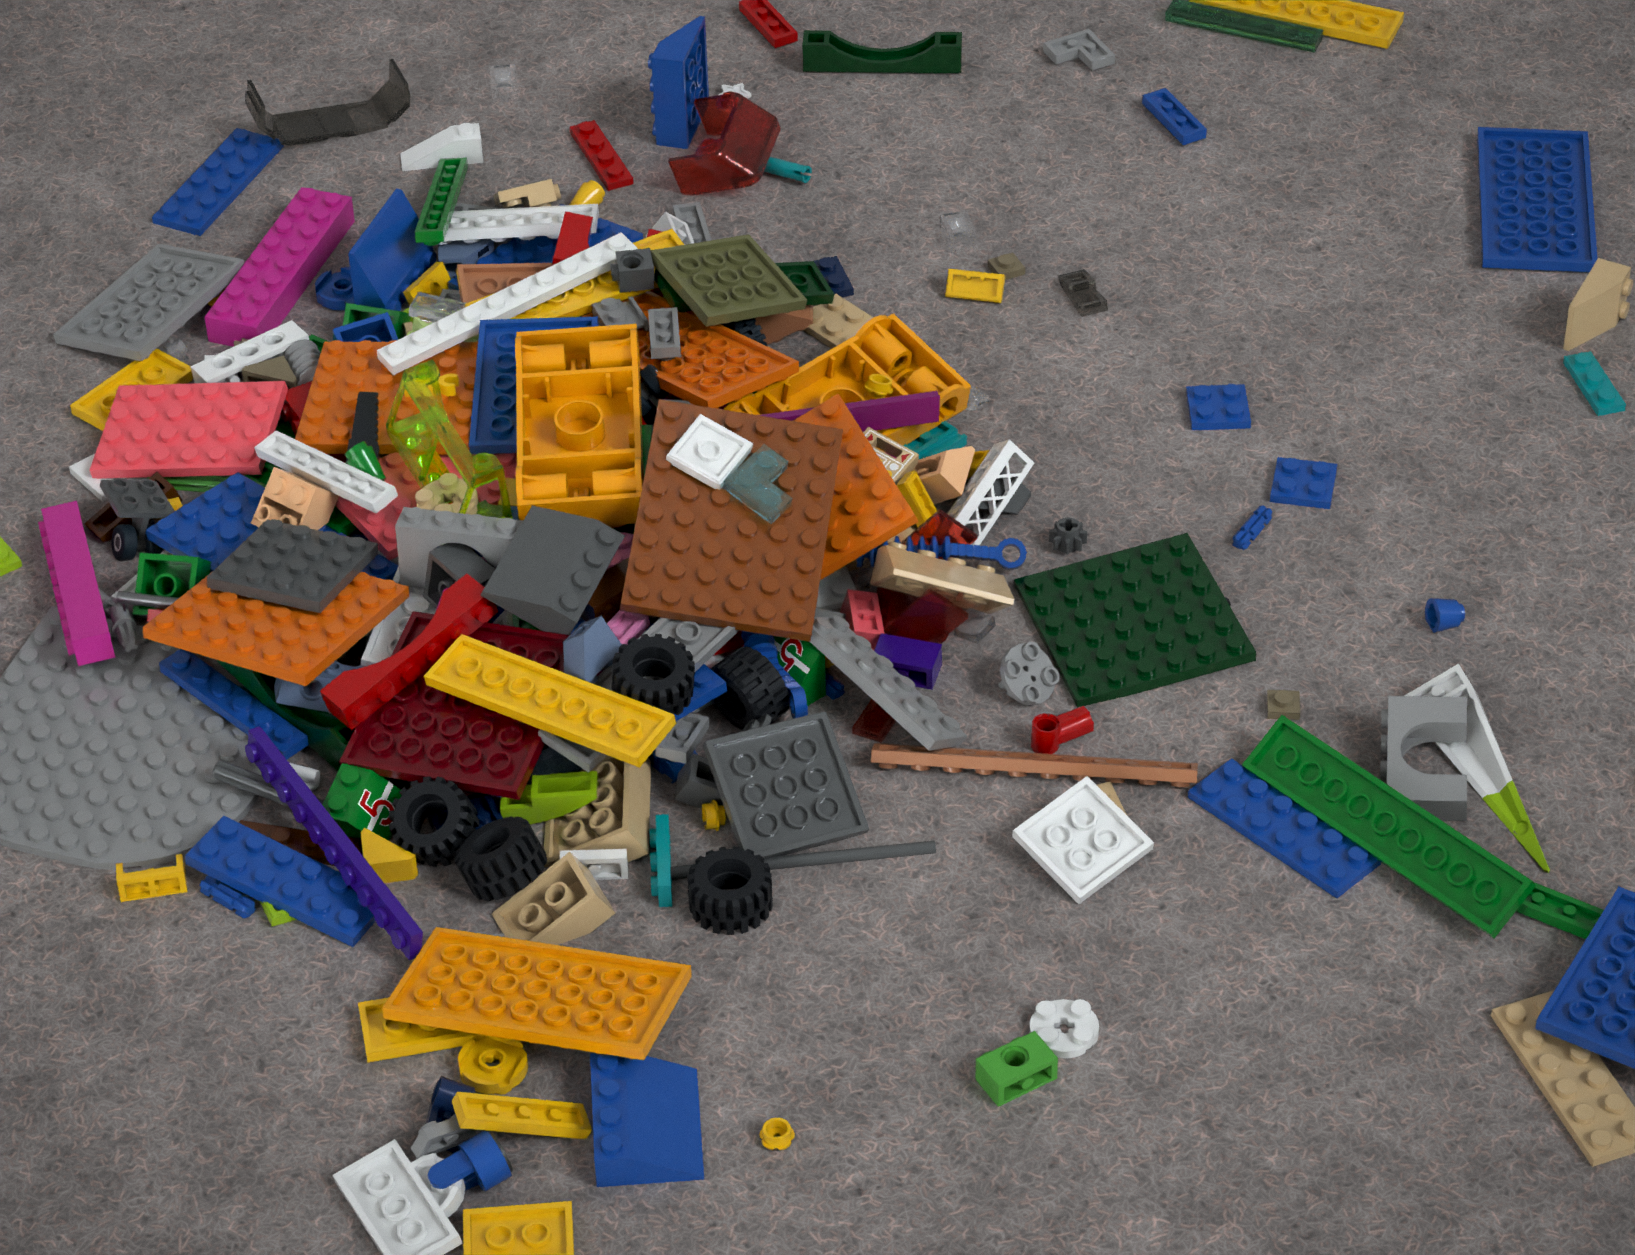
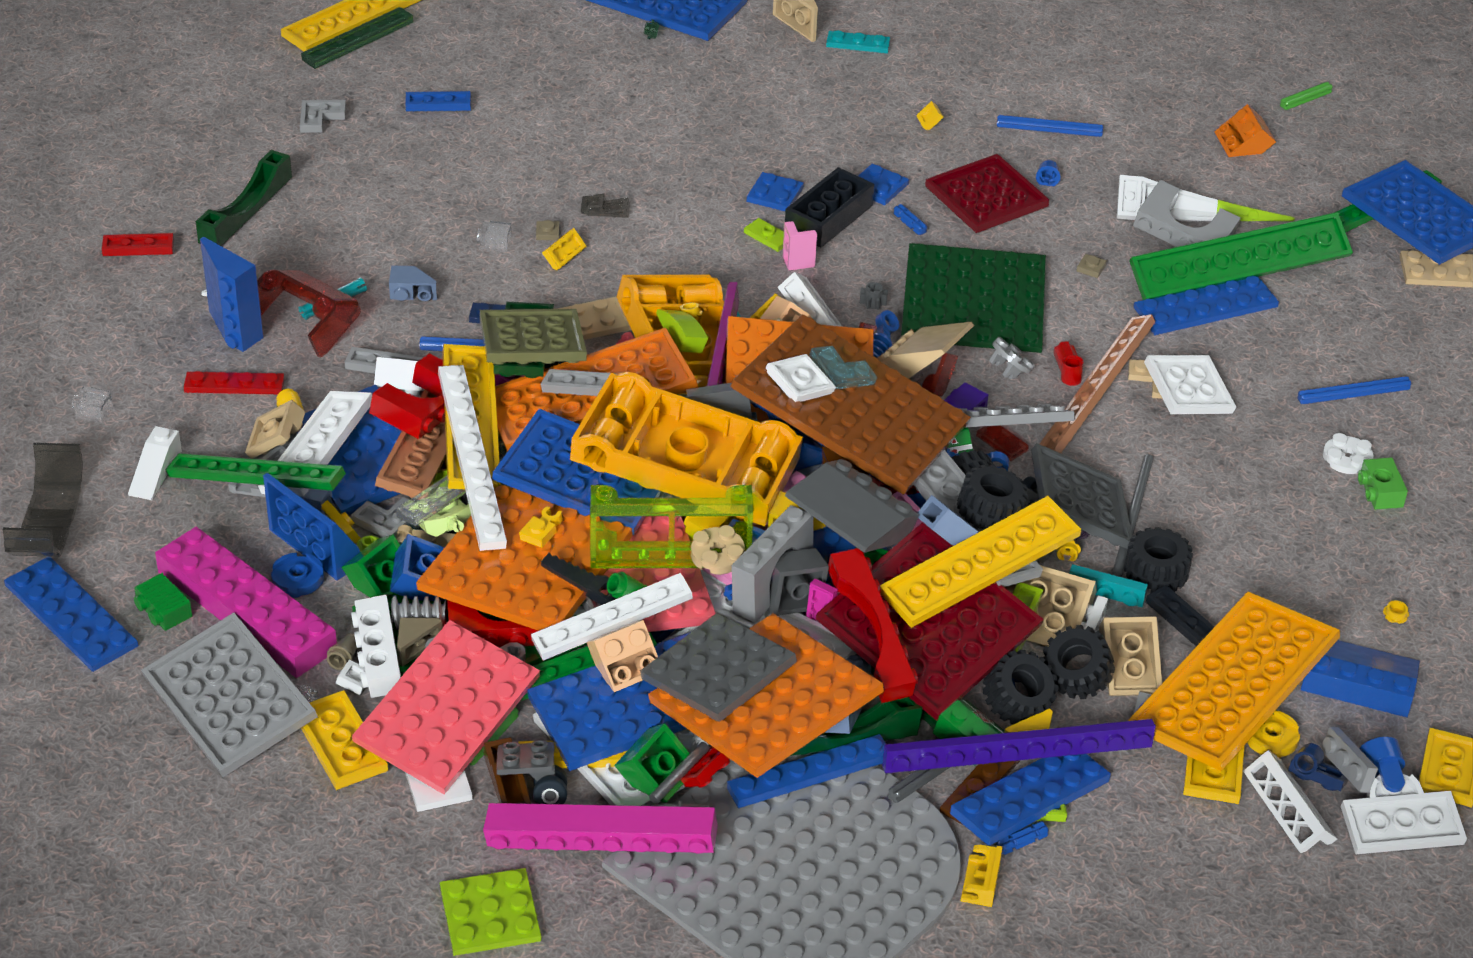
camera: 70 degrees left, 0 degrees up
(253, 222) = (162, 602): none -> green brick
(386, 1105) = (1297, 798): none -> white fence
(521, 1115) = (1355, 723): yellow plate -> none
(615, 312) = (523, 405): light grey plate -> none
(633, 270) = (488, 375): dark grey brick -> none
(659, 930) = (1179, 614): none -> black plate
(827, 380) = (684, 330): none -> lime slope
(830, 203) = (403, 283): none -> sand blue slope
(1095, 442) = (798, 247): none -> bright pink panel
(1130, 426) = (765, 234): none -> lime plate
(1204, 449) = (831, 205): none -> black brick
(1205, 1008) = (1354, 390): none -> blue axle
(1357, 574) = (987, 193): none -> dark red plate
(1456, 215) = (651, 29): none -> clear green plate
(1478, 483) = (929, 116): none -> yellow plate
(1558, 593) = (1050, 125): none -> blue axle

